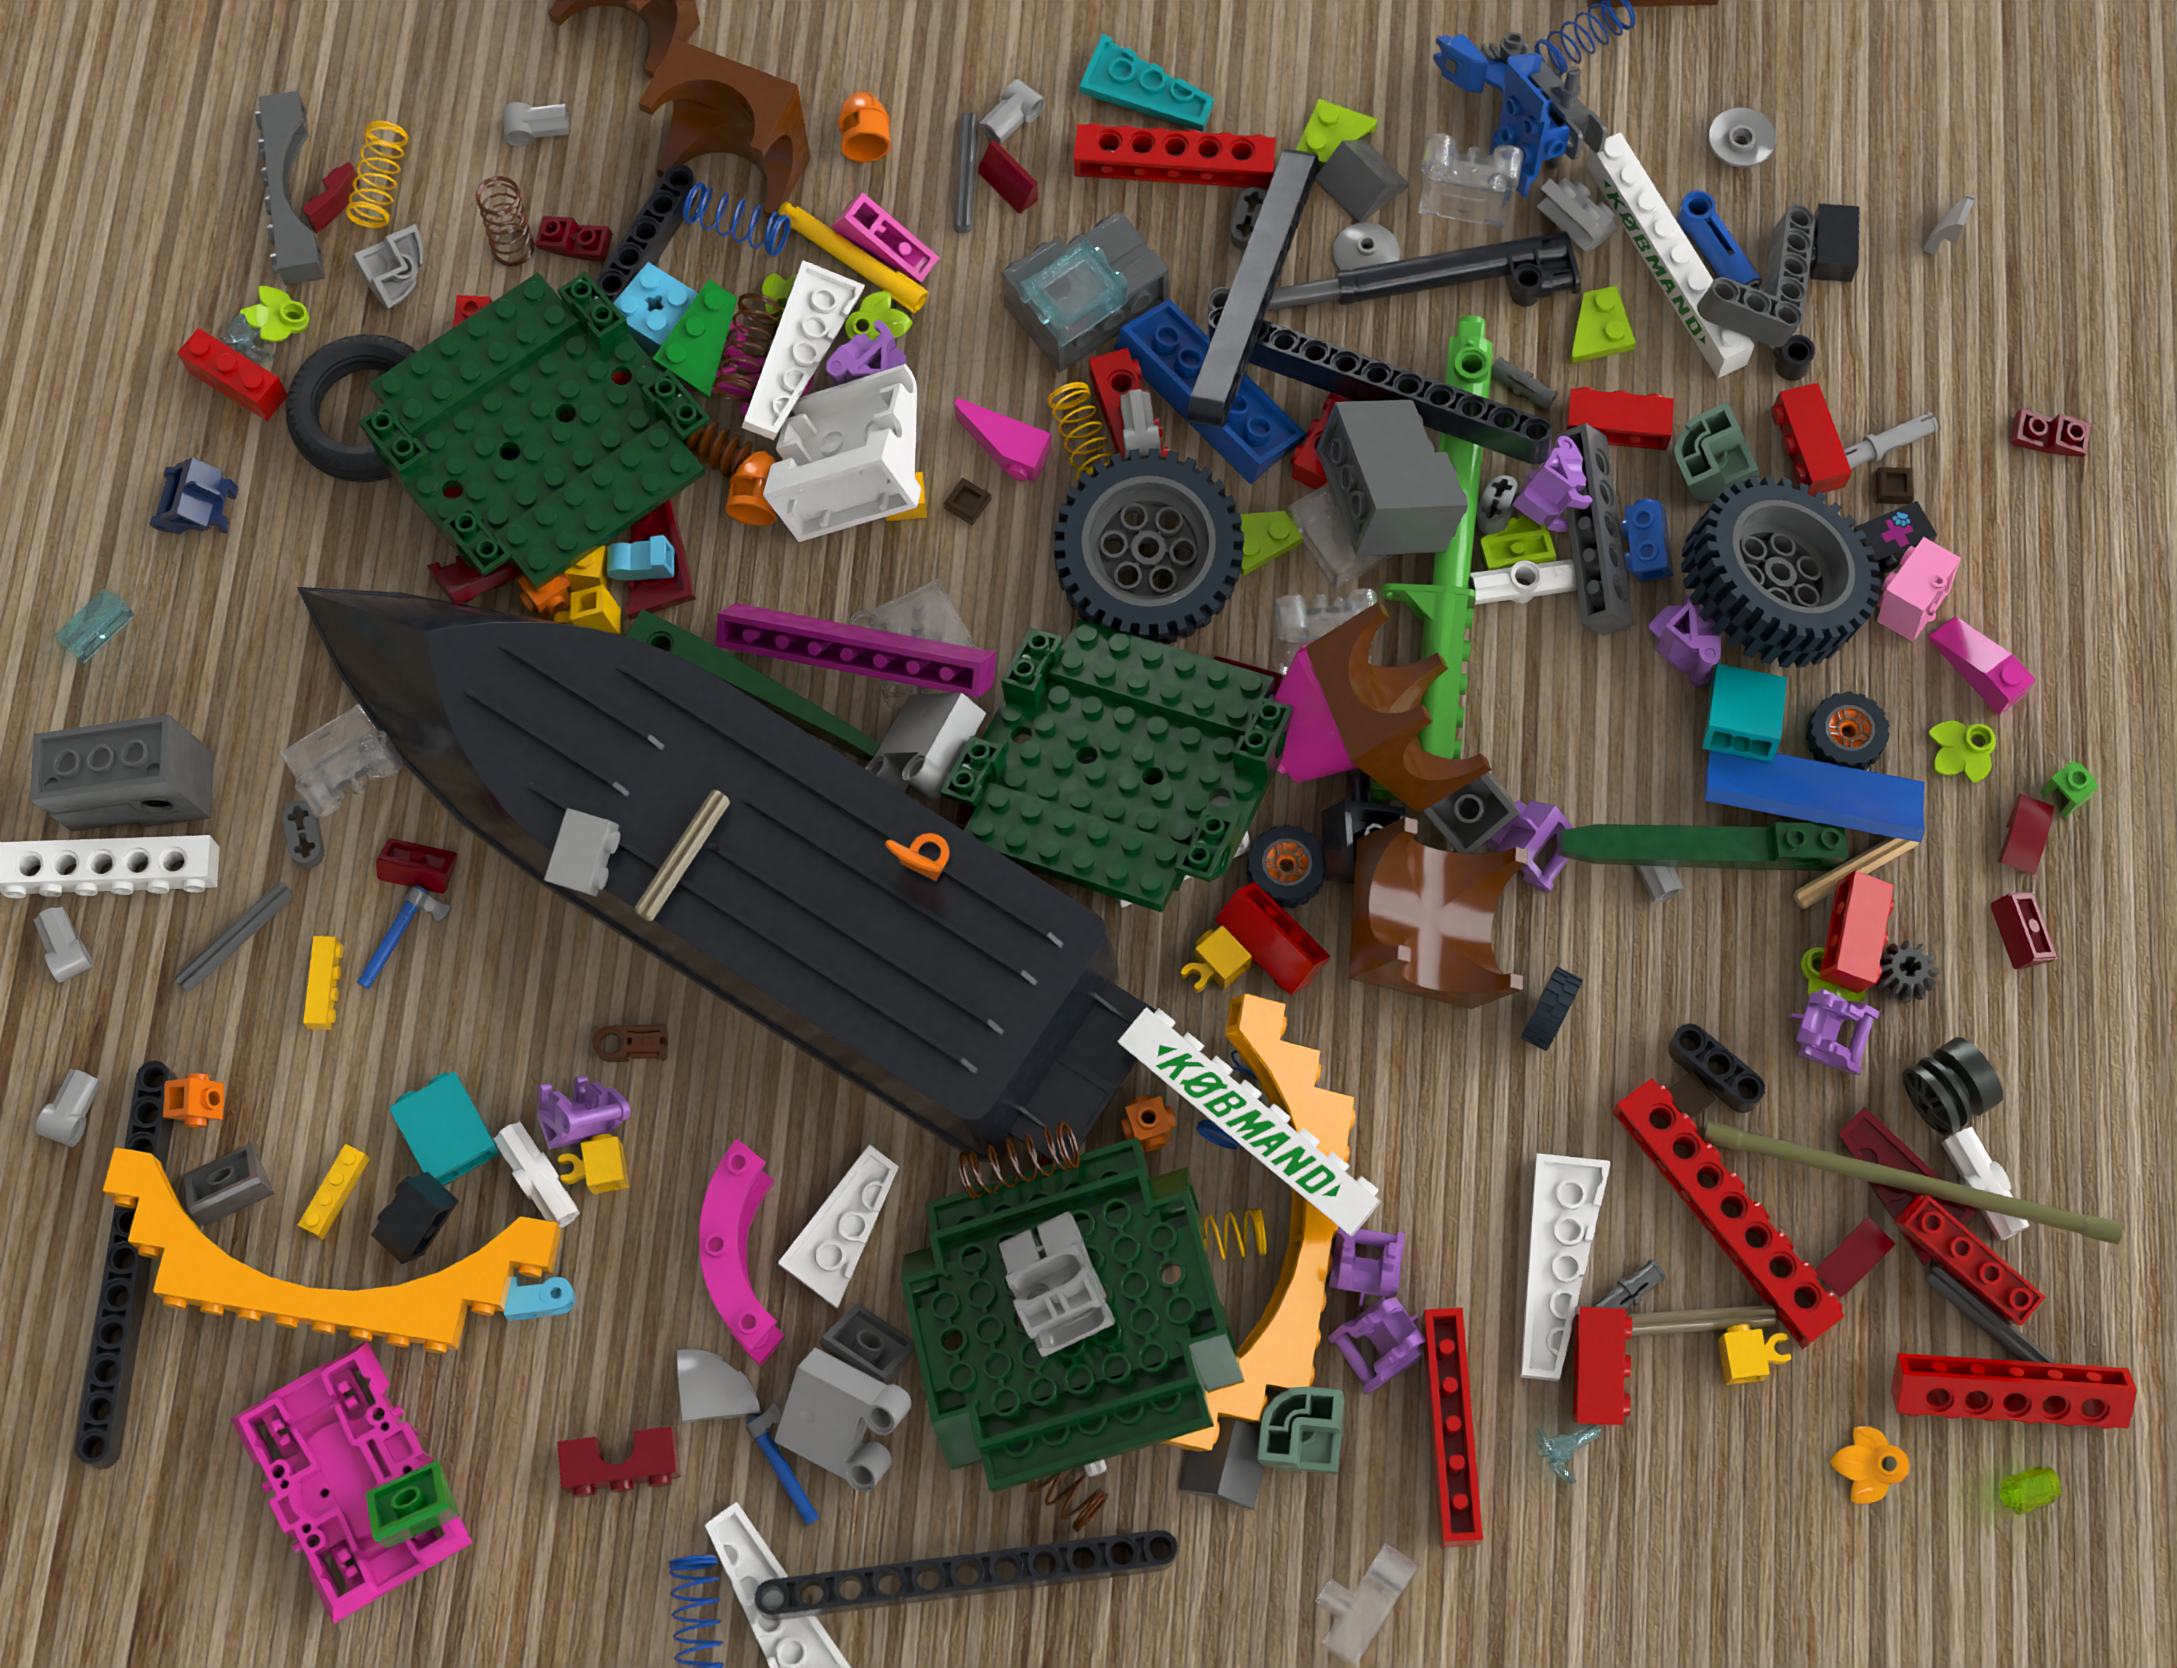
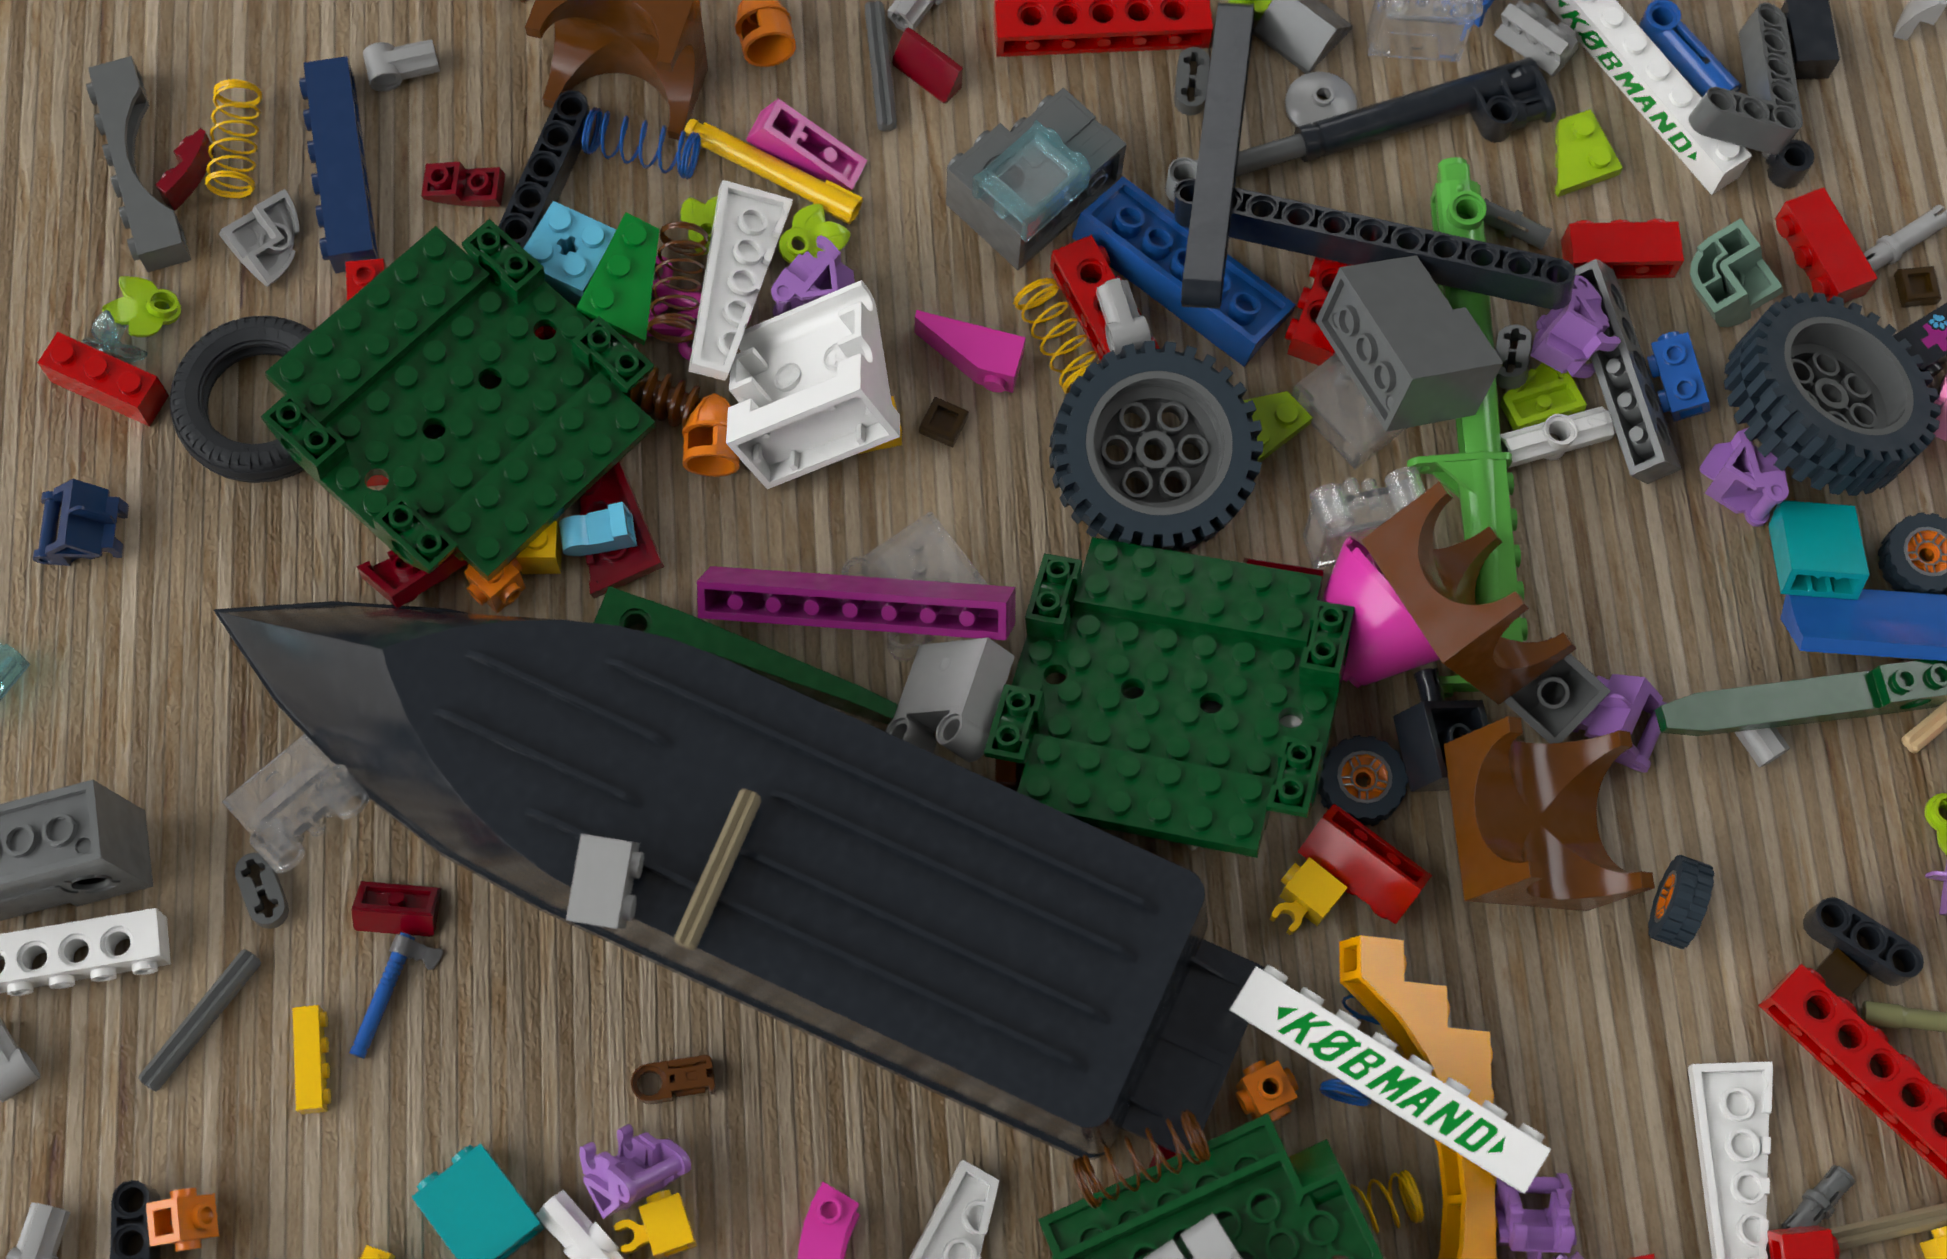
camera: 15 degrees left, 0 degrees up
(465, 243) = (339, 162): none -> dark blue brick
(525, 229) = (409, 183): reddish brown piece -> none
(592, 609) = (552, 596): yellow brick -> none
(917, 862) = (988, 842): orange piece -> none

